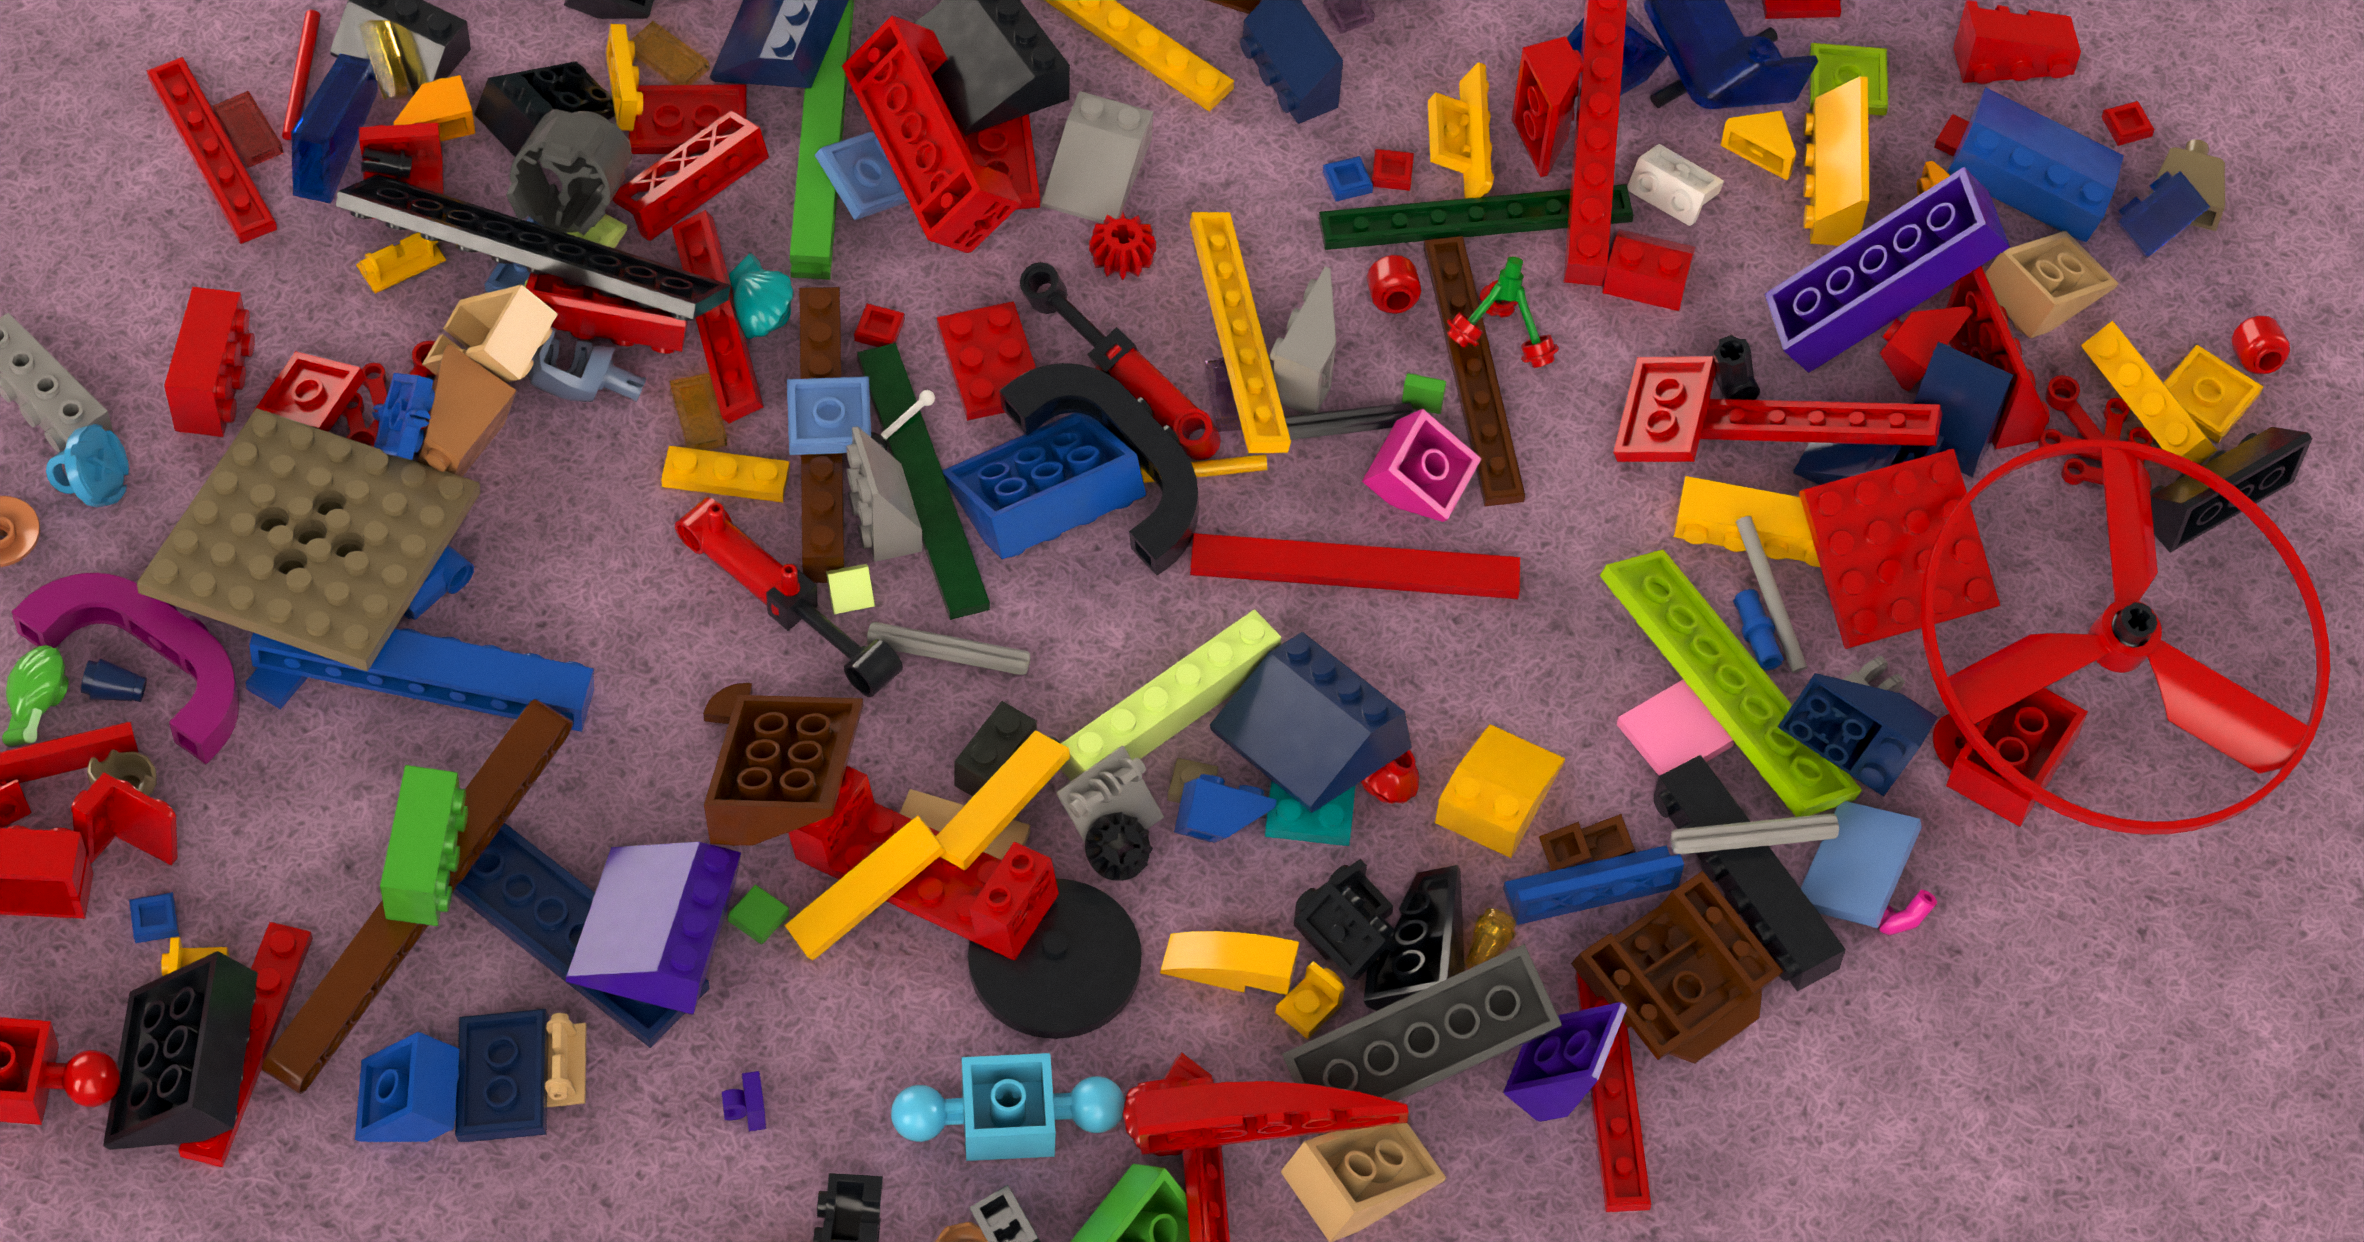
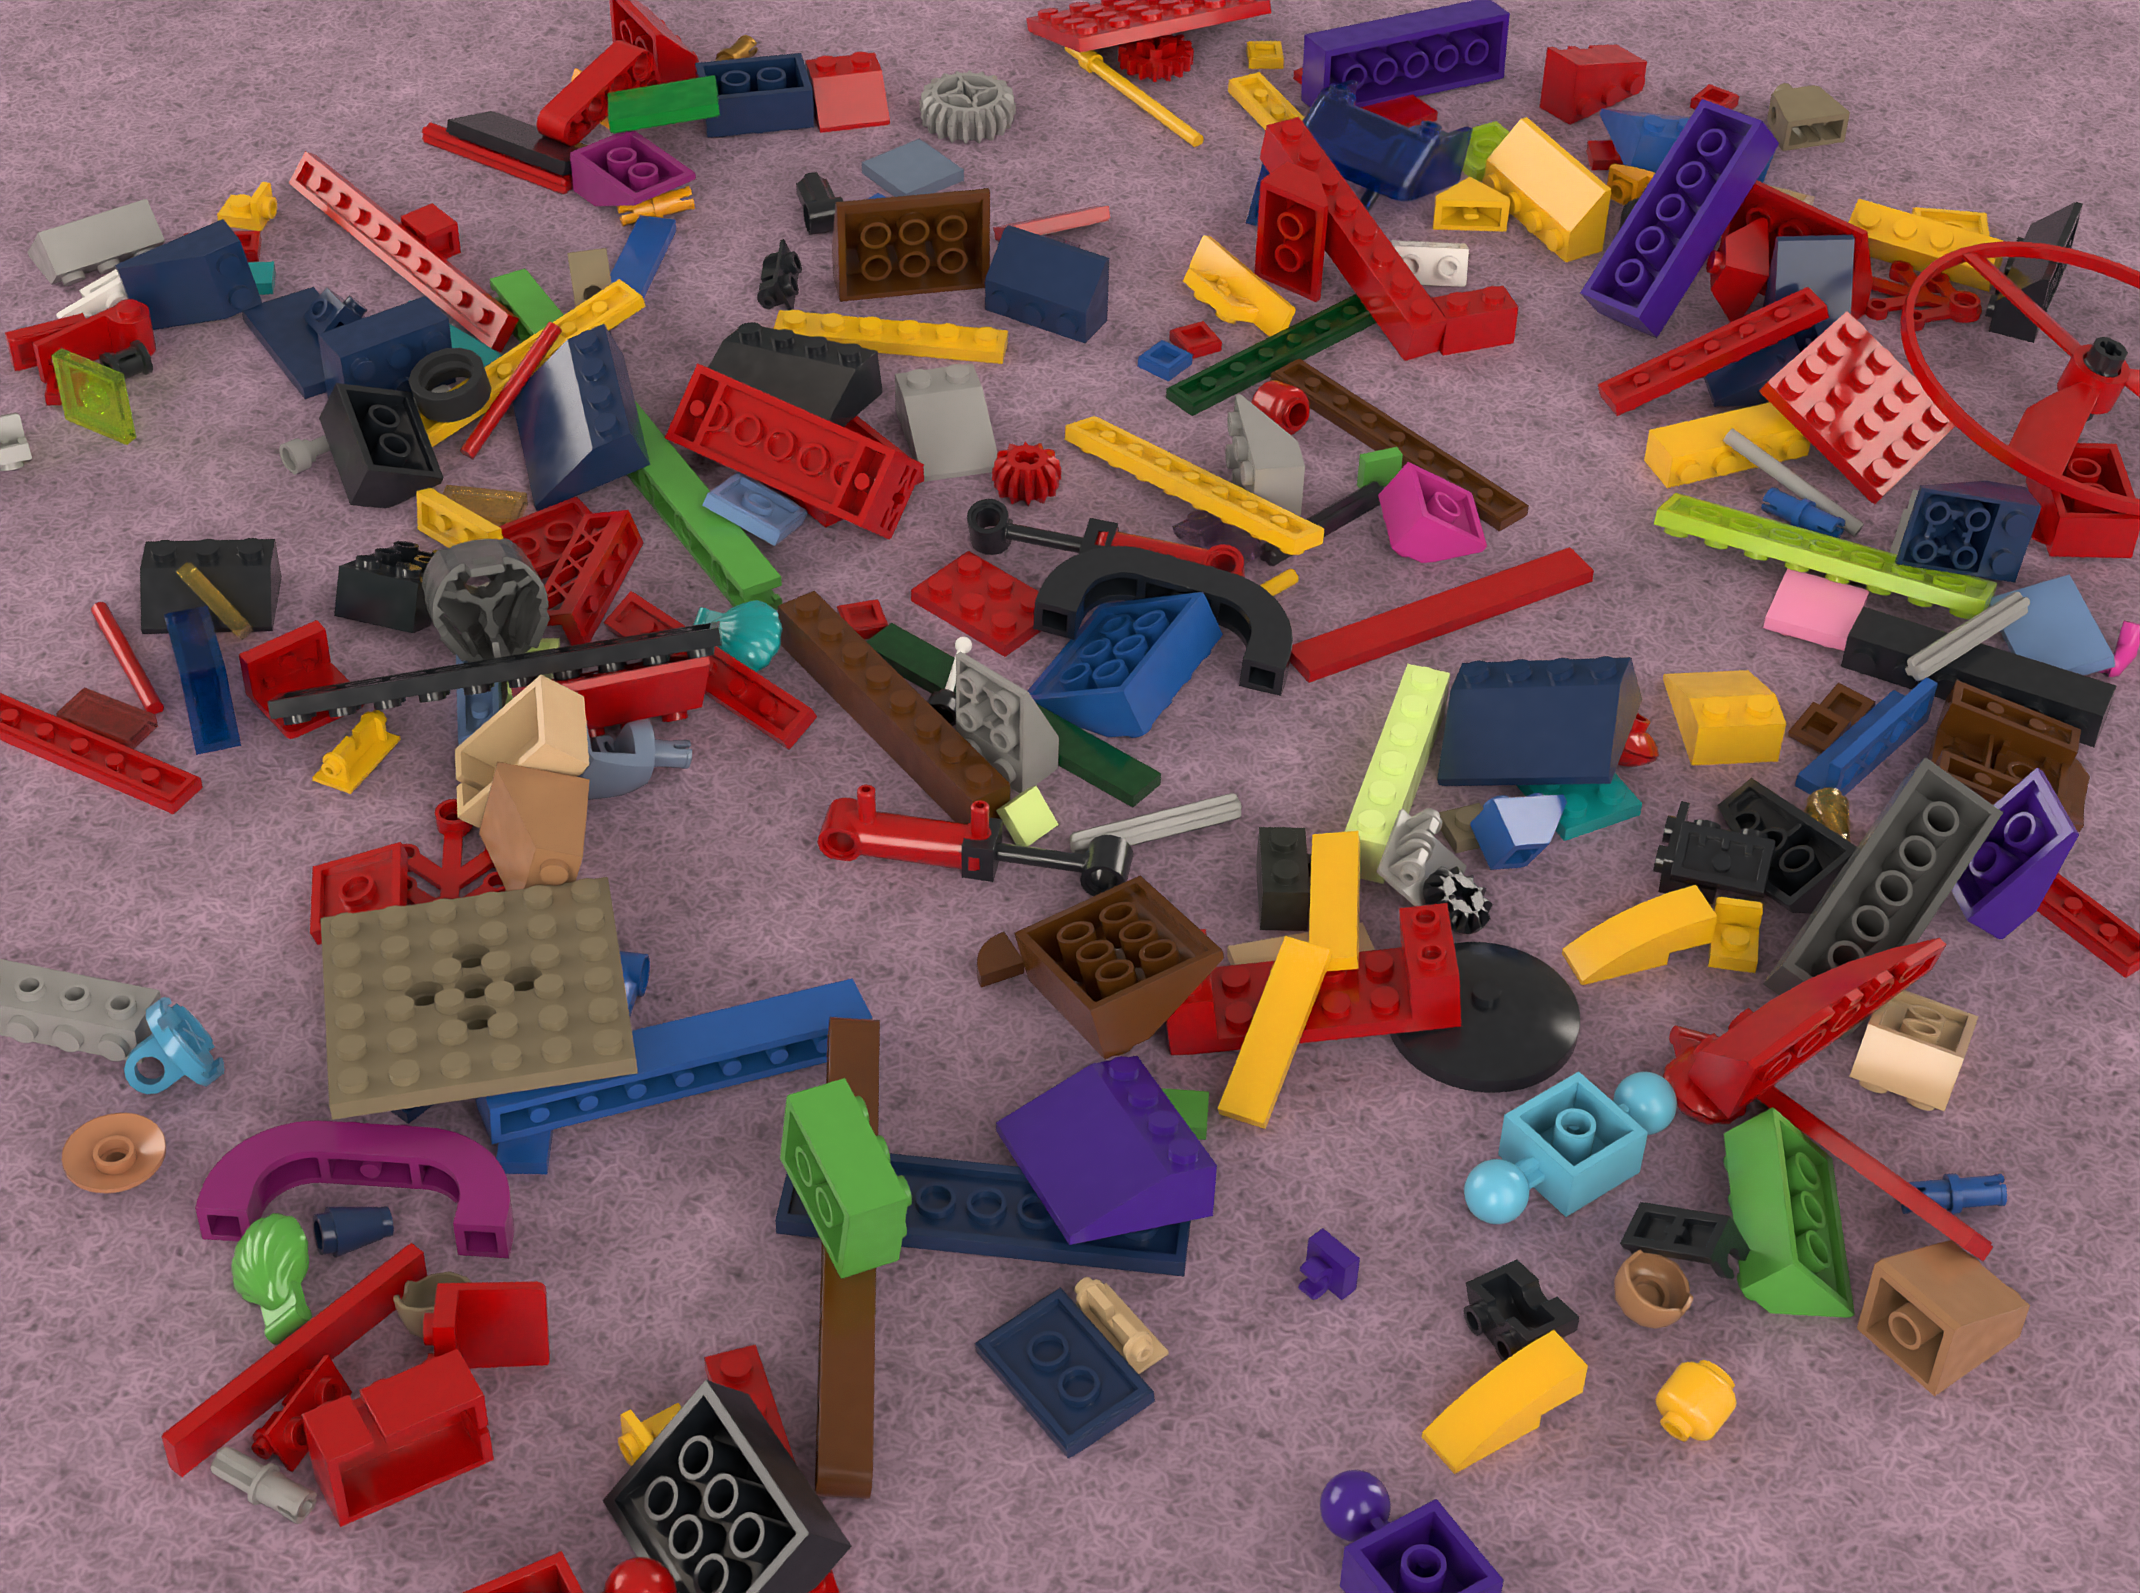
camera: 30 degrees left, 15 degrees down
(154, 917) = (572, 1418): blue tile -> none
(209, 362) = (237, 904): red brick -> none
(388, 163) = (283, 678): black pin -> none
(404, 415) = (489, 846): blue plate -> none
(408, 1091) = (984, 1433): blue slope -> none
(441, 103) = (299, 608): light orange slope -> none
(698, 412) = (755, 752): clear yellow tile -> none
(725, 474) = (821, 785): yellow plate -> none
(824, 413) = (900, 679): medium blue tile -> none
(1500, 300) = (1373, 385): plant -> none
(1665, 409) = (1581, 399): plate -> none
(1735, 369) = (1611, 346): black piece -> none
(2162, 213) = (1812, 130): clear blue brick -> none
(2260, 345) = (1959, 187): red head -> none

